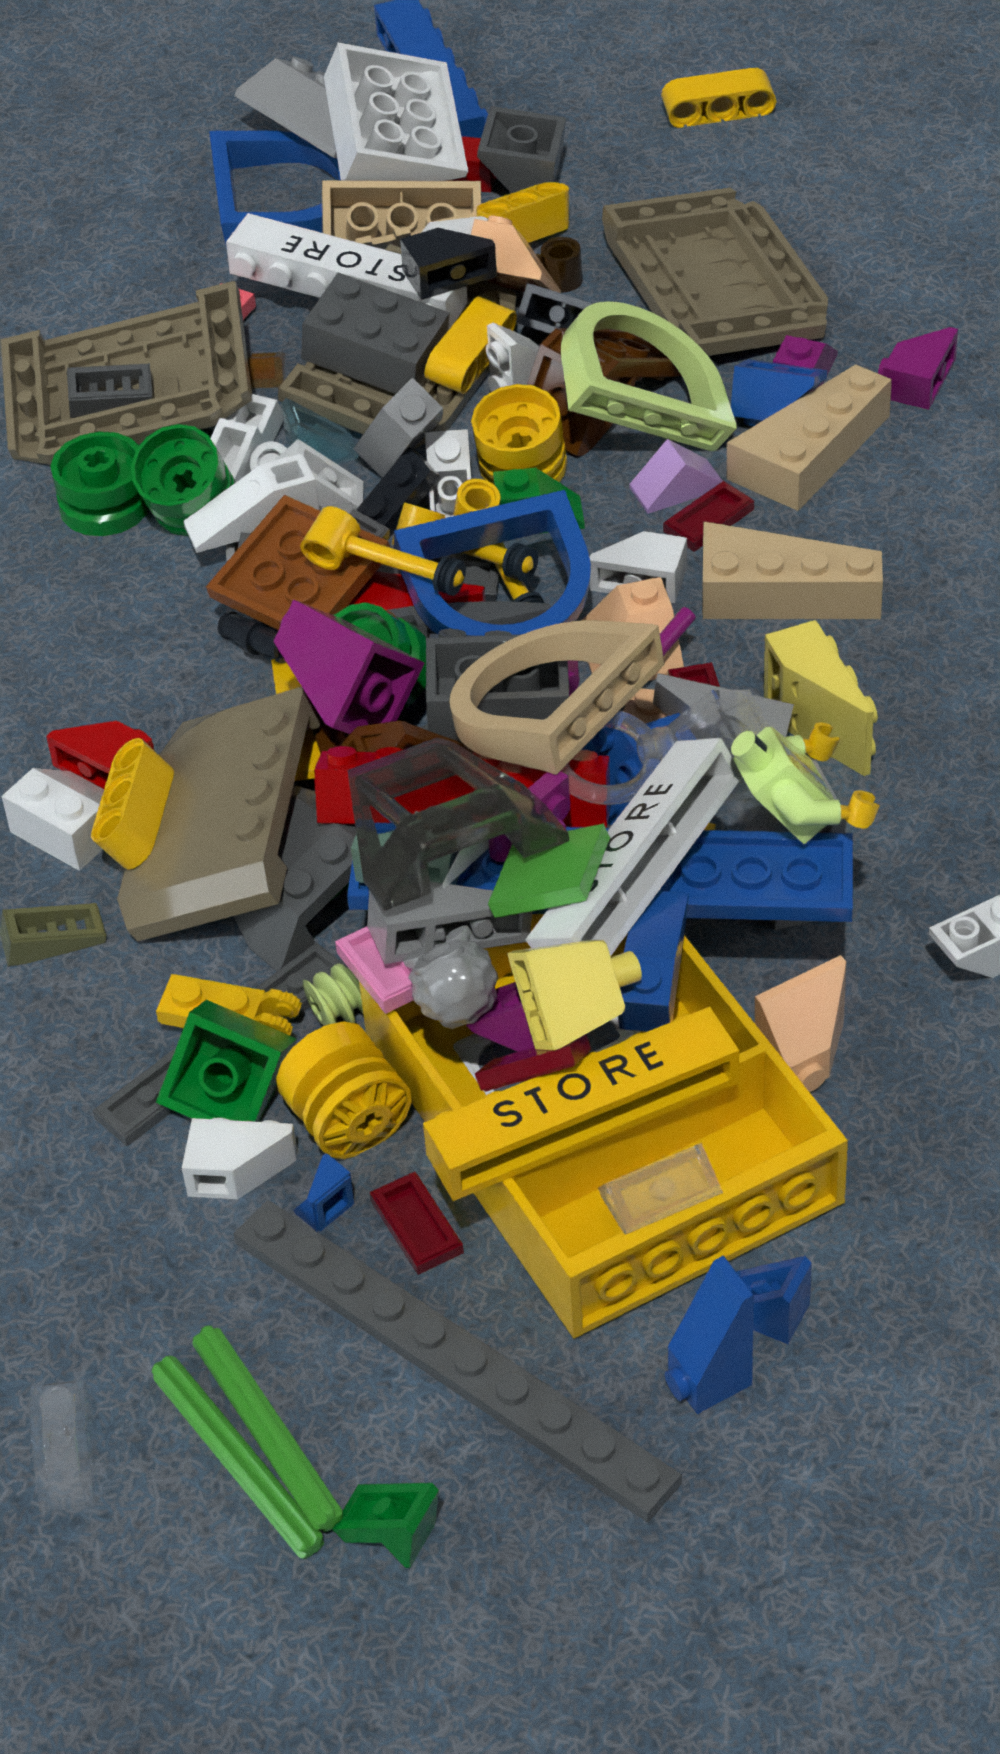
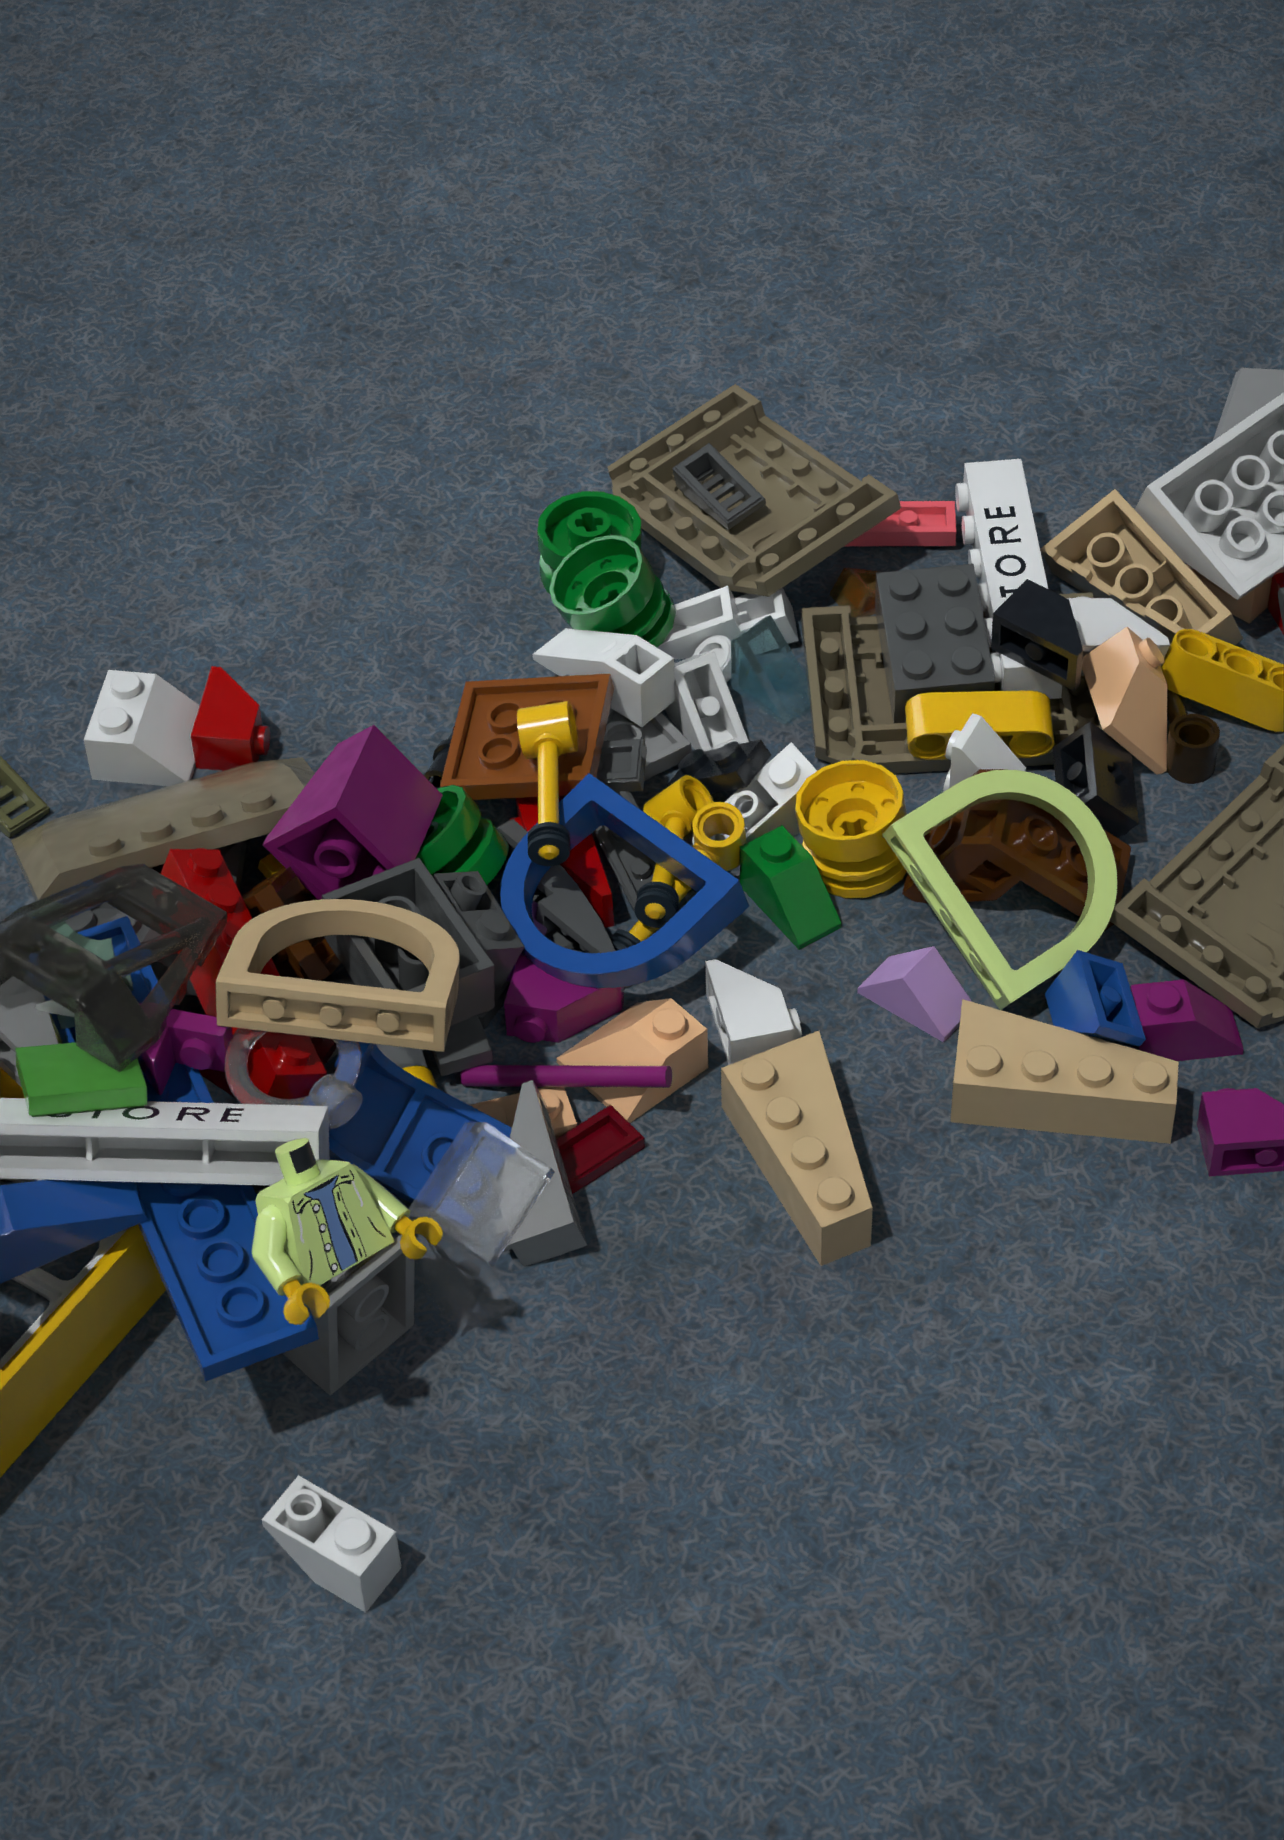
camera: 60 degrees right, 0 degrees up
(132, 804) = (150, 764): yellow beam -> none
(259, 148) = (1059, 466): blue window -> none
(399, 426) = (792, 711): light grey slope -> none
(719, 505) = (882, 1044): dark red tile -> none
(806, 1020) = (113, 1423): light nougat slope -> none
(807, 671) = (618, 1239): light yellow slope -> none

